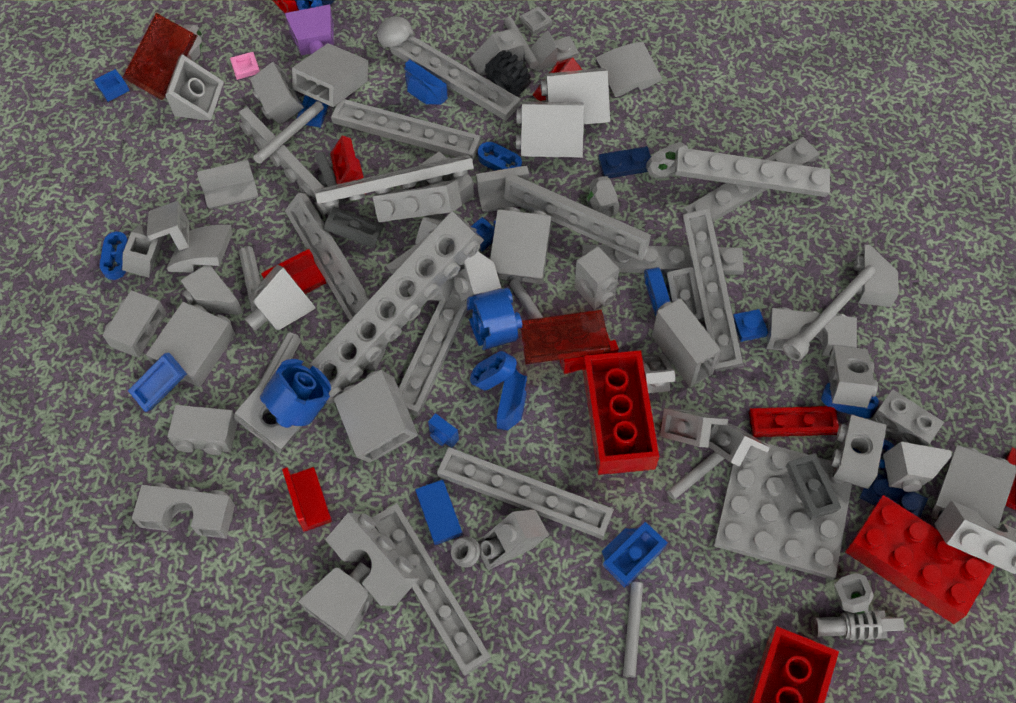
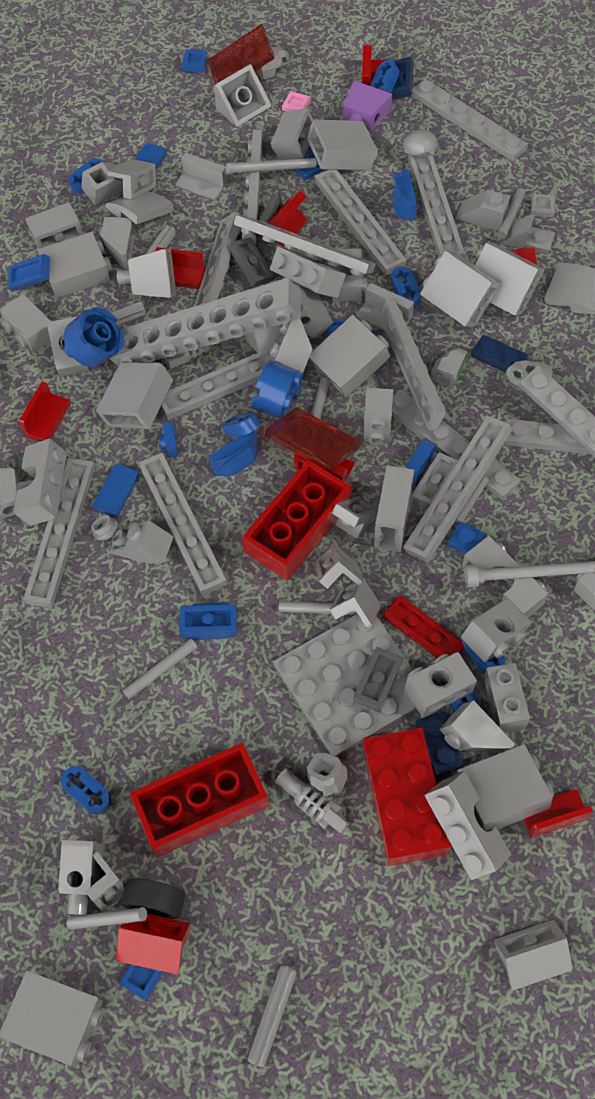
camera: 45 degrees right, 0 degrees up
(157, 195) = (152, 154): none -> blue tile
(508, 72) = (471, 227): black tyre -> none

